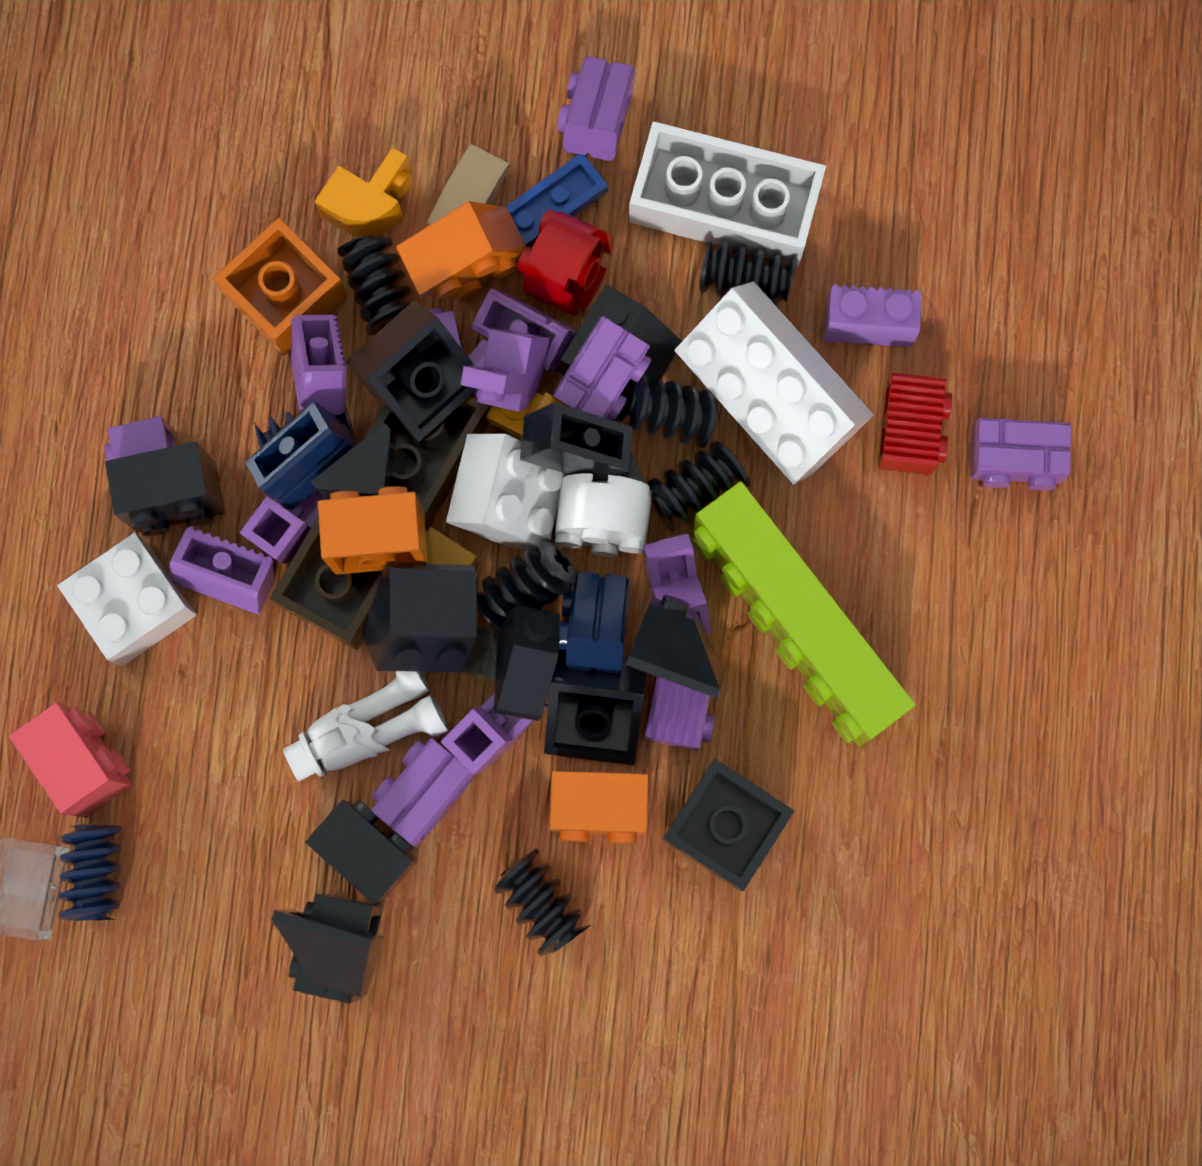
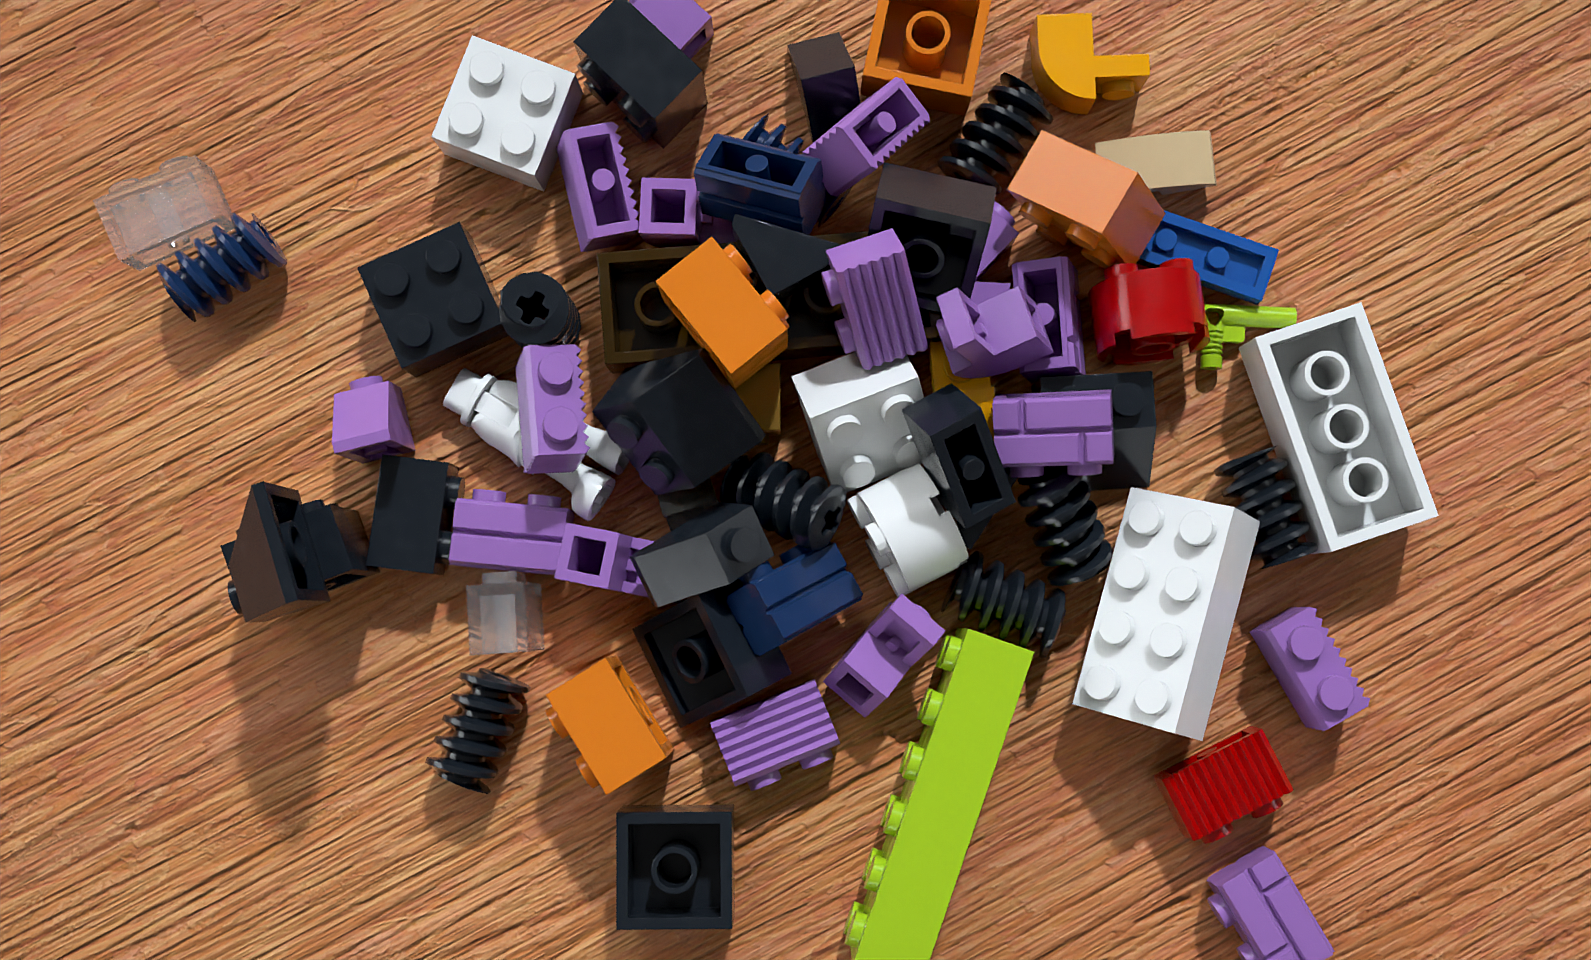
camera: 55 degrees right, 5 degrees up
(72, 760) = (312, 170): coral brick -> none
(222, 735) = (434, 300): none -> black brick
(259, 372) = (824, 81): none -> black slope
(267, 667) = (540, 295): none -> black piece
(274, 836) = (370, 421): none -> medium lavender slope
(354, 700) = (551, 408): none -> medium lavender brick
(433, 426) = (876, 299): none -> medium lavender brick
(475, 828) = (504, 614): none -> clear brick
(597, 108) = (1336, 234): medium lavender brick -> none
(611, 216) = (1232, 324): none -> lime hose
(676, 647) = (813, 703): black slope -> none

